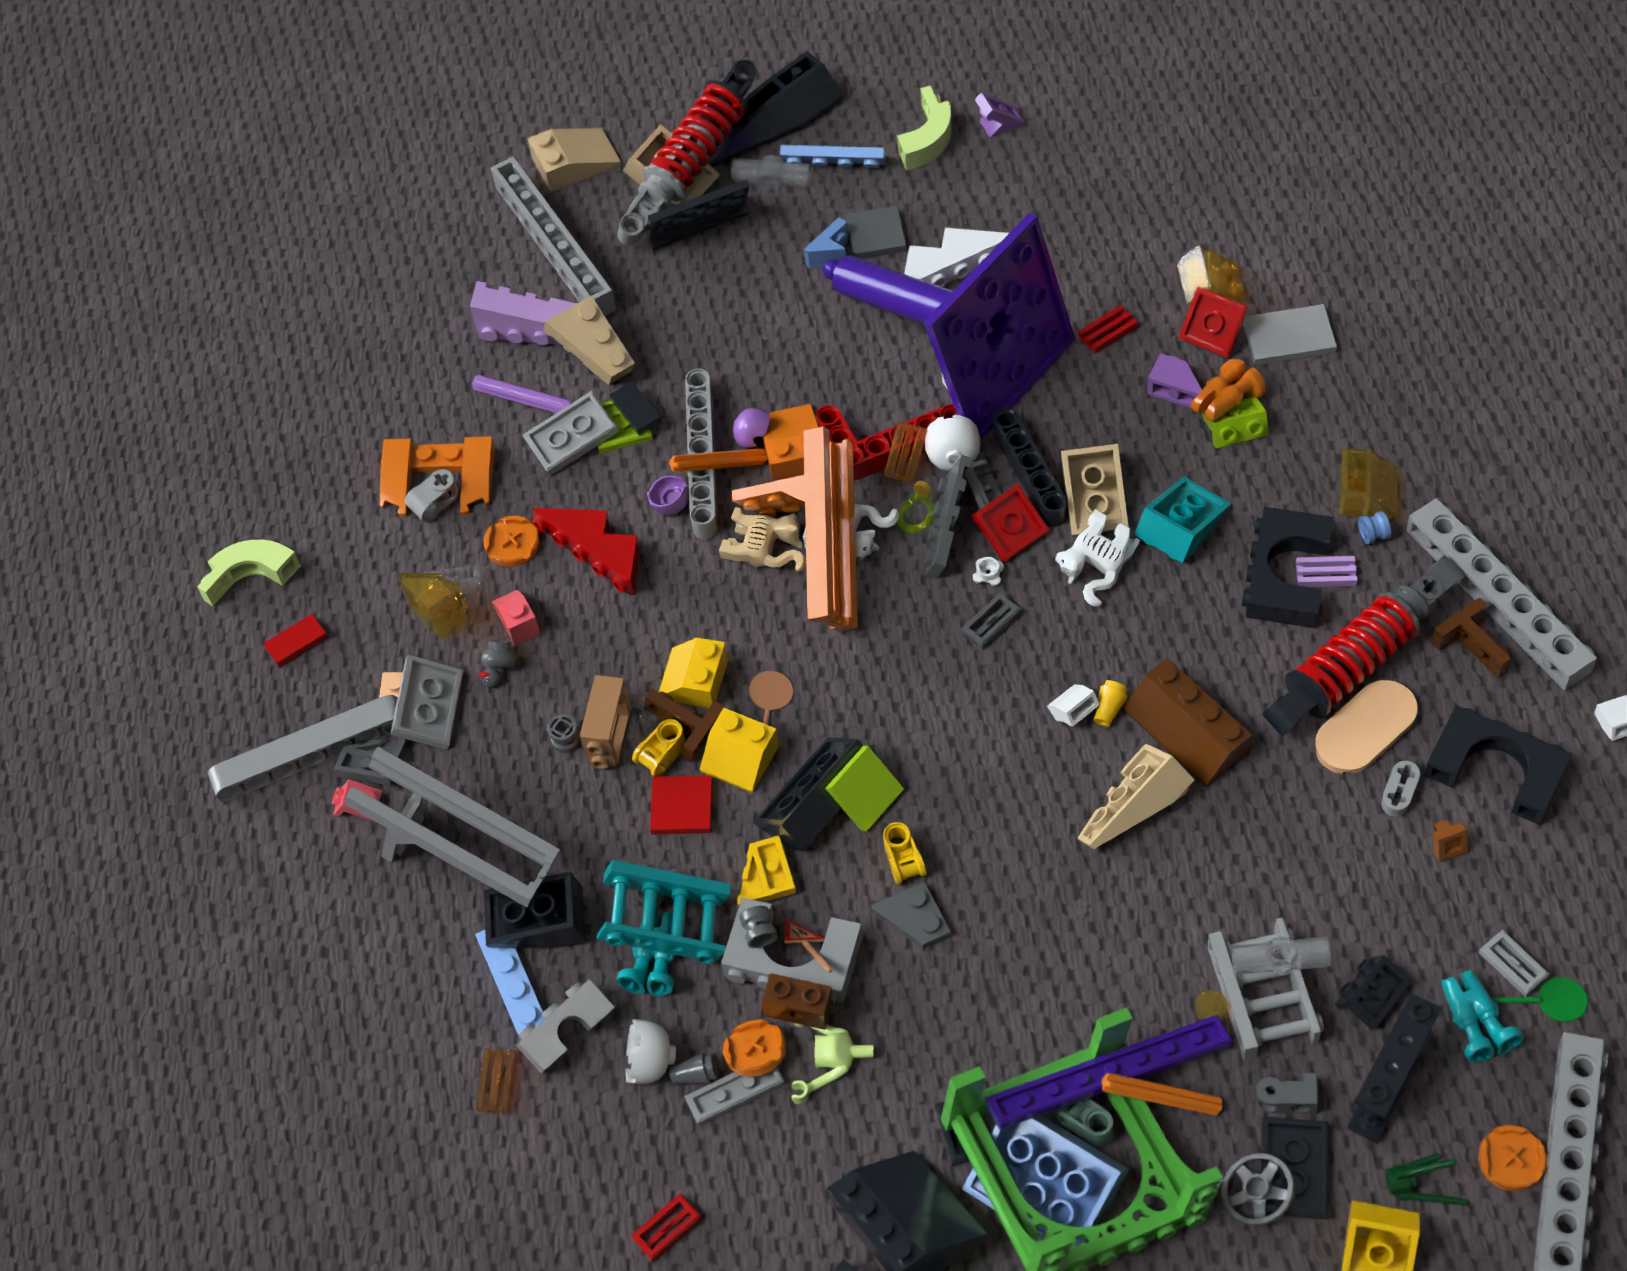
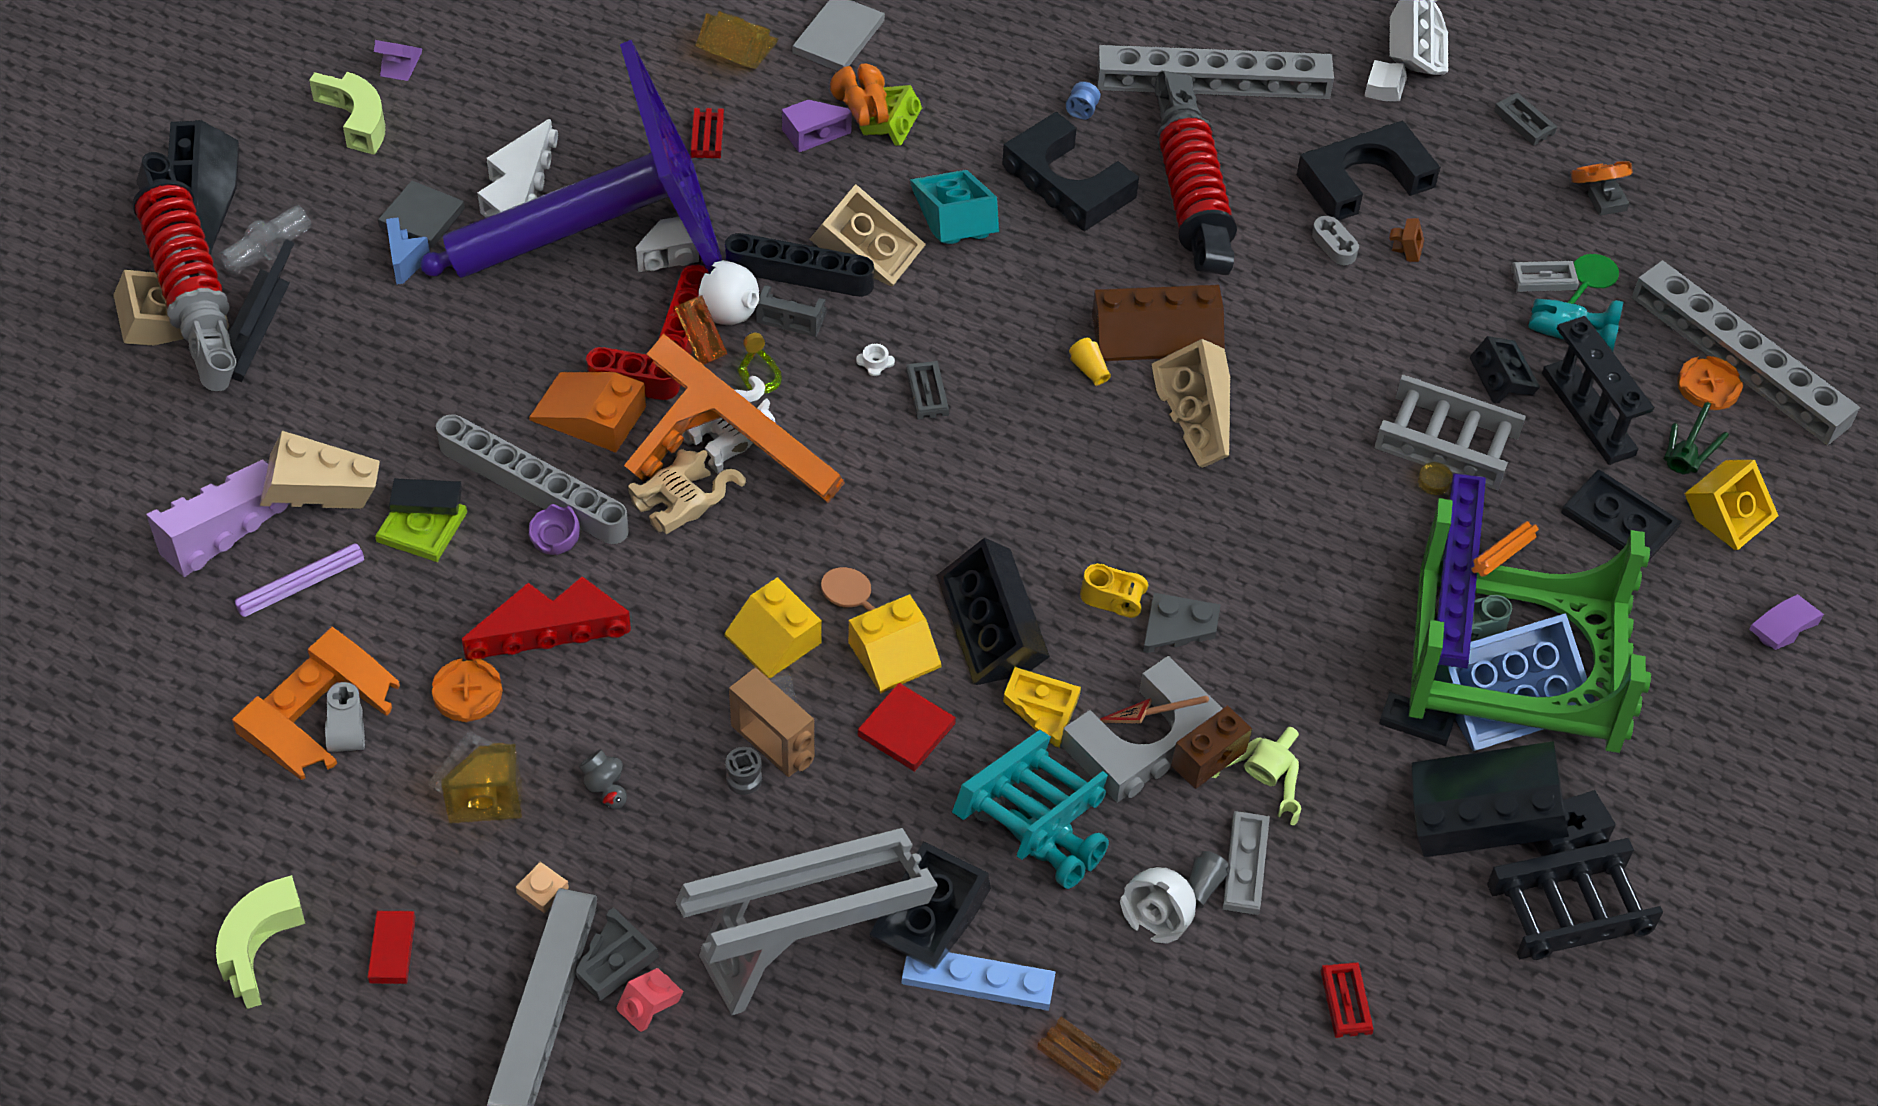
camera: 65 degrees left, 5 degrees down
(427, 702) = (594, 864): light grey tile -> none
(516, 617) = (563, 731): coral slope -> none
(551, 235) = (138, 438): light grey brick -> none
(570, 433) = (394, 566): light grey tile -> none
(571, 155) = (52, 373): tan slope -> none
(584, 1005) = (1077, 981): light grey arch -> none
(656, 751) = (834, 706): yellow piece -> none
(696, 728) = (835, 660): reddish brown bracket -> none
(718, 460) = (566, 463): orange axle -> none
(750, 424) = (547, 423): medium lavender hair -> none
(754, 1048) = (1220, 817): orange tile -> none
(758, 927) = (1114, 727): dark grey wheel -> none
(844, 156) = (311, 180): light blue plate -> none
(864, 788) = (1027, 572): lime tile -> none
(945, 516) = (797, 346): dark grey wing -> none
(1010, 522) = (846, 310): red tile -> none
(1073, 704) = (1072, 383): white piece -> none
(1099, 552) = (936, 275): white animal -> none
(1213, 322) = (784, 61): red tile -> none
(1258, 1189) = (1622, 537): flat silver wheel -> none
(1288, 1096) = (1564, 471): dark grey leg -> none
(1301, 953) = (1445, 391): clear piece -> none
(1325, 568) = (1100, 142): lavender tile -> none
(1366, 484) = (1036, 80): clear yellow slope -> none
(1366, 727) = (1263, 225): light nougat tile -> none
(1474, 637) = (1244, 111): reddish brown bracket -> none

